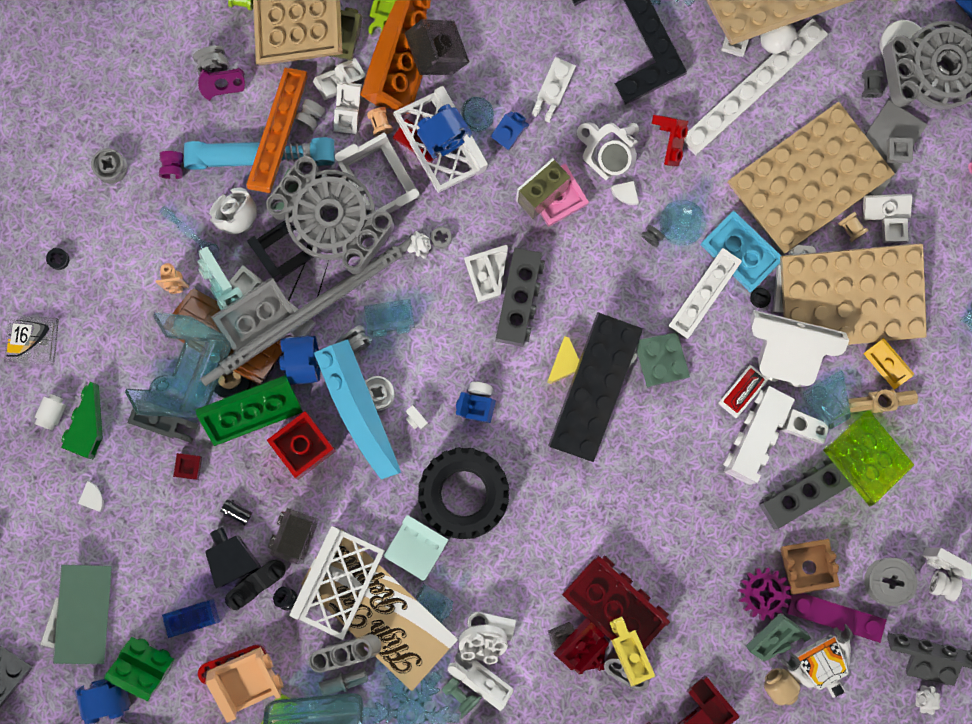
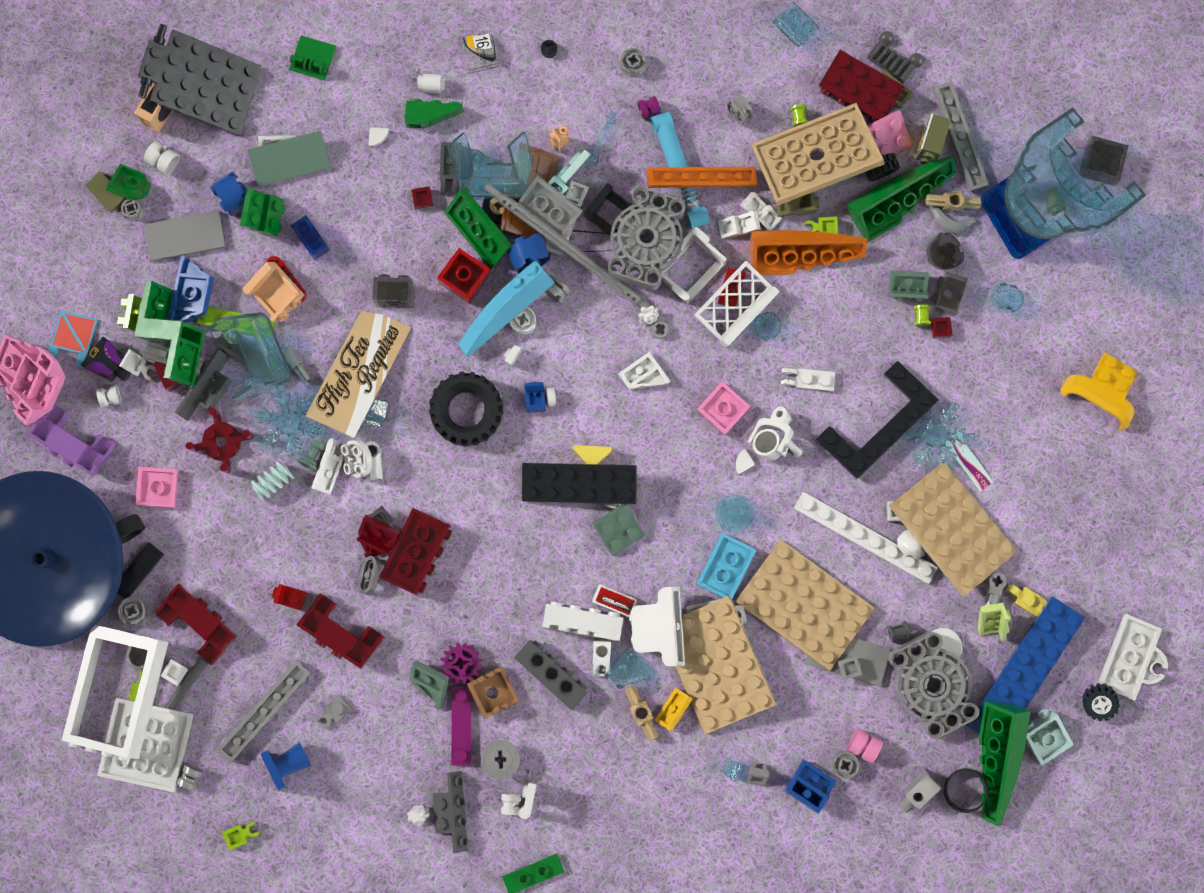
camera: 70 degrees right, 0 degrees up
(209, 89) = (718, 116): magenta piece -> none
(229, 558) = (363, 251): black torso -> none
(235, 212) = (626, 166): white cylinder -> none
(235, 511) = (399, 243): black pin -> none
(254, 584) = (350, 276): black piece -> none
(279, 596) = (346, 297): black bush -> none
(309, 114) = (723, 198): light grey wheel -> none
(318, 573) = (369, 319): white fence -> none
(335, 657) = (315, 351): light grey beam -> none
(379, 121) = (736, 253): light nougat bush -> none
(389, 317) = (584, 310): clear light blue bracket -> none
(416, 548) = (414, 387): light aqua bracket -> none
(436, 47) = (808, 277): clear smoke brick -> none
(443, 131) = (740, 302): blue brick -> none
(510, 129) = (764, 355): blue bracket -> none
(521, 260) = (660, 395): dark grey brick -> none
(542, 188) = (720, 392): olive piece -> none
(631, 653) = (382, 571): light yellow plate -> none
(652, 235) = (715, 492): dark grey bush -> none
(678, 132) = (806, 485): red bracket -> none
(705, 293) = (681, 546): white plate -> none
(760, 297) = (694, 593): black piece -> none
(782, 686) = (394, 697): tan head -> none
(823, 662) = (421, 723): torso -> none
(853, 227) = (775, 649): tan bush -> none
(868, 458) = (592, 713): clear neon green plate -> none
(887, 206) = (801, 672): white plate -> none
(895, 230) = (783, 684): white plate -> none

